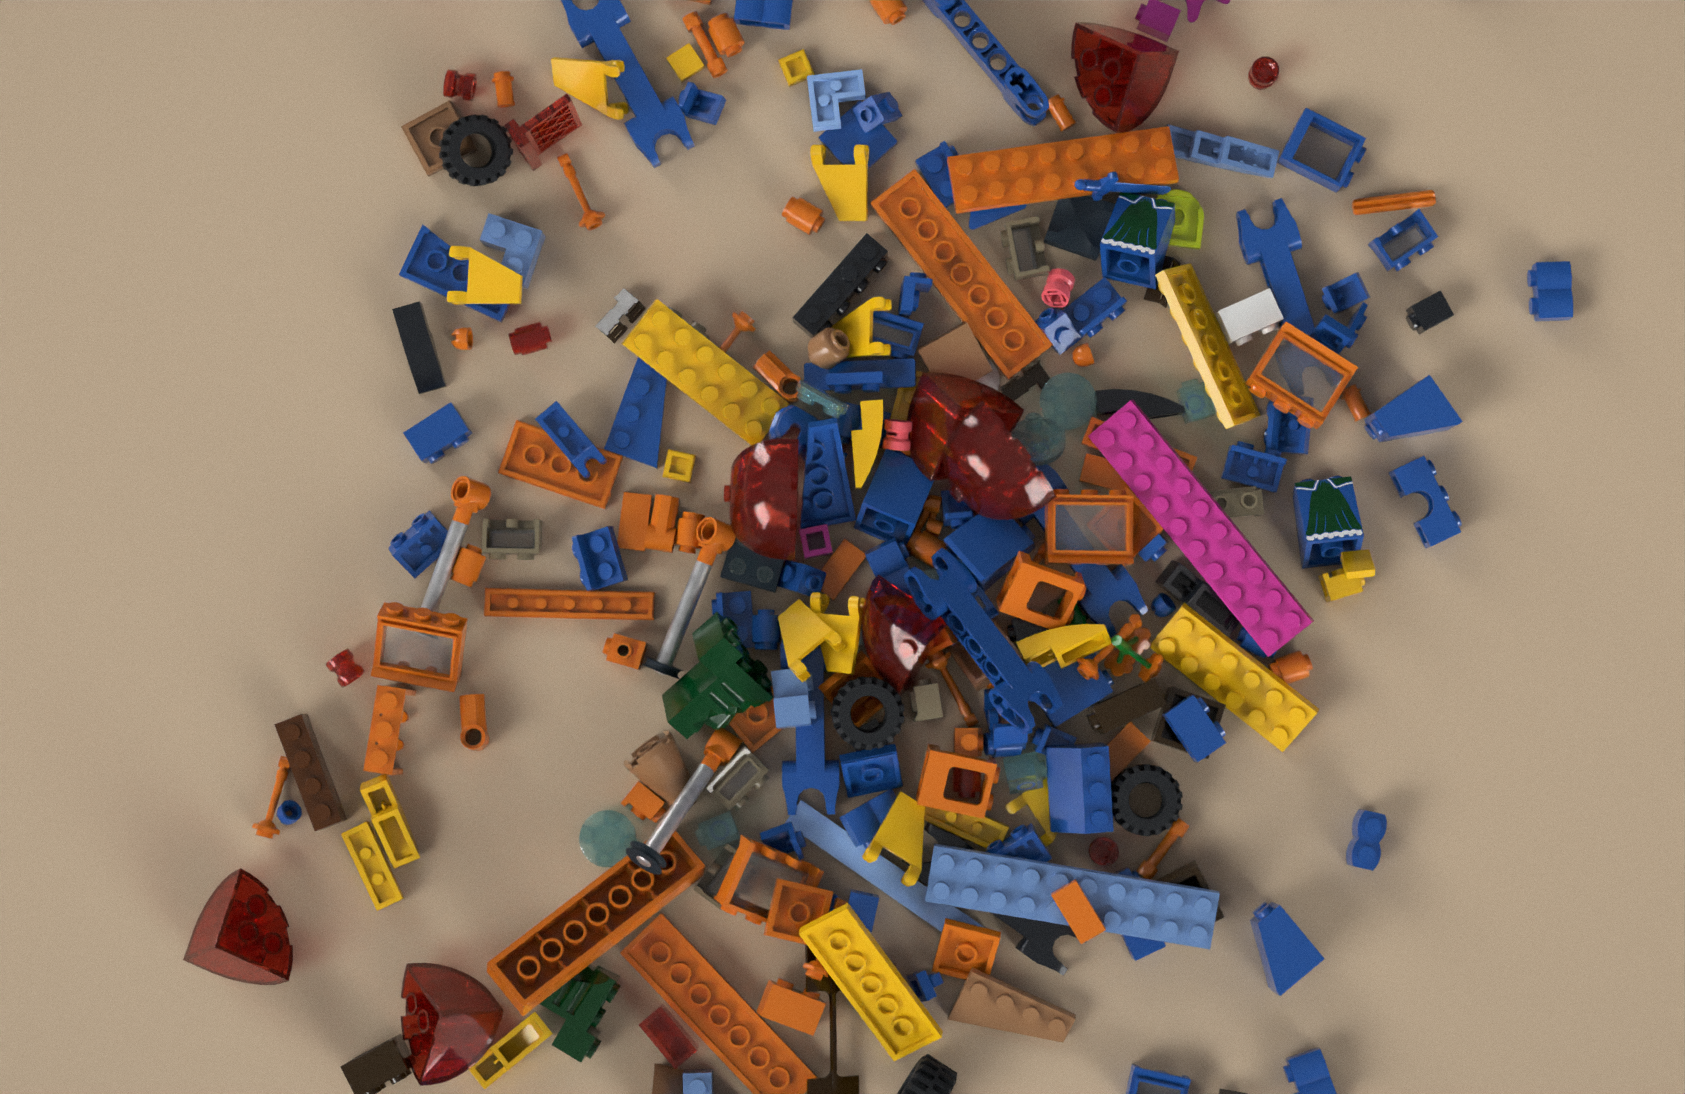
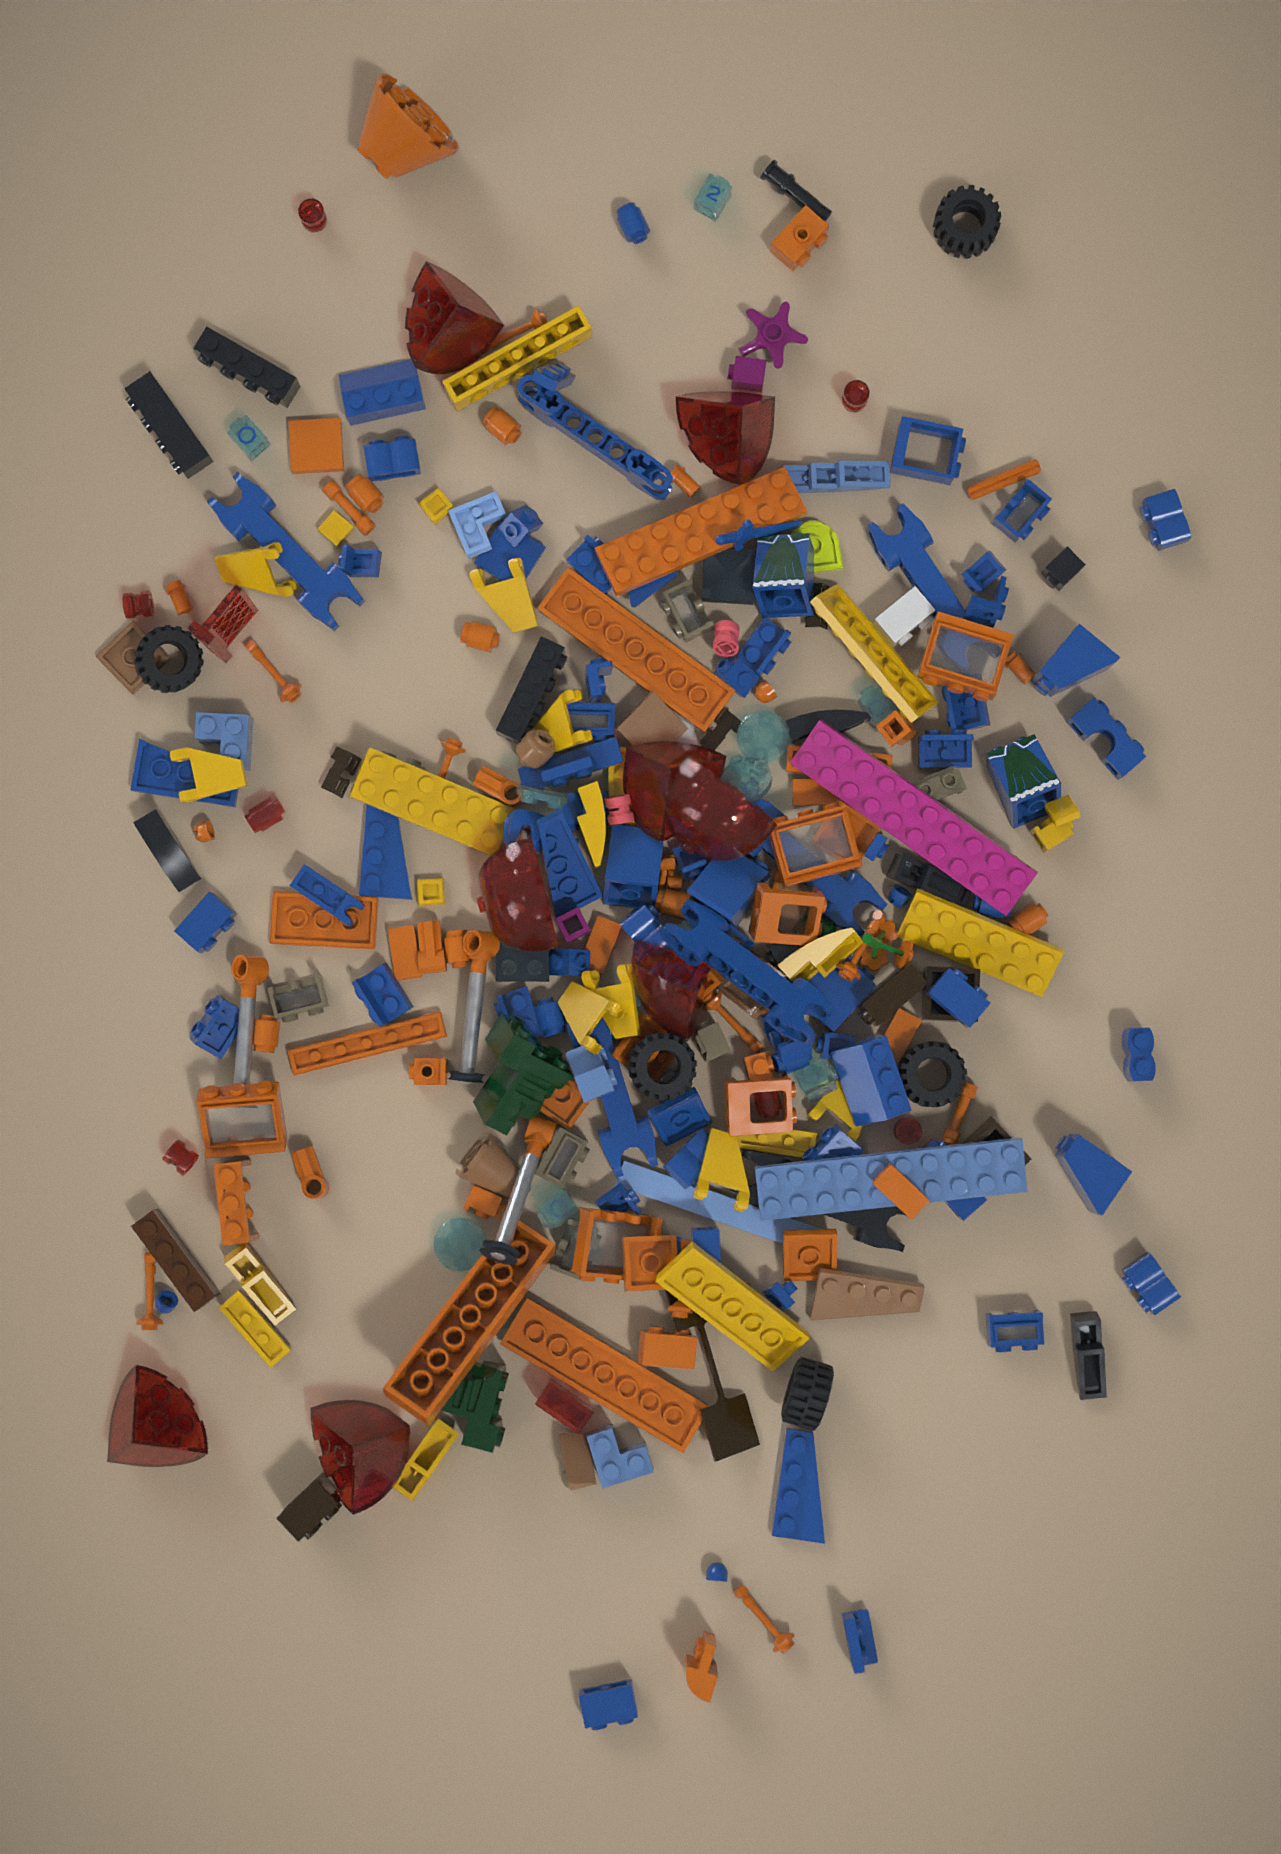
camera: 20 degrees left, 0 degrees up
(1209, 431) = (896, 729): none -> orange brick

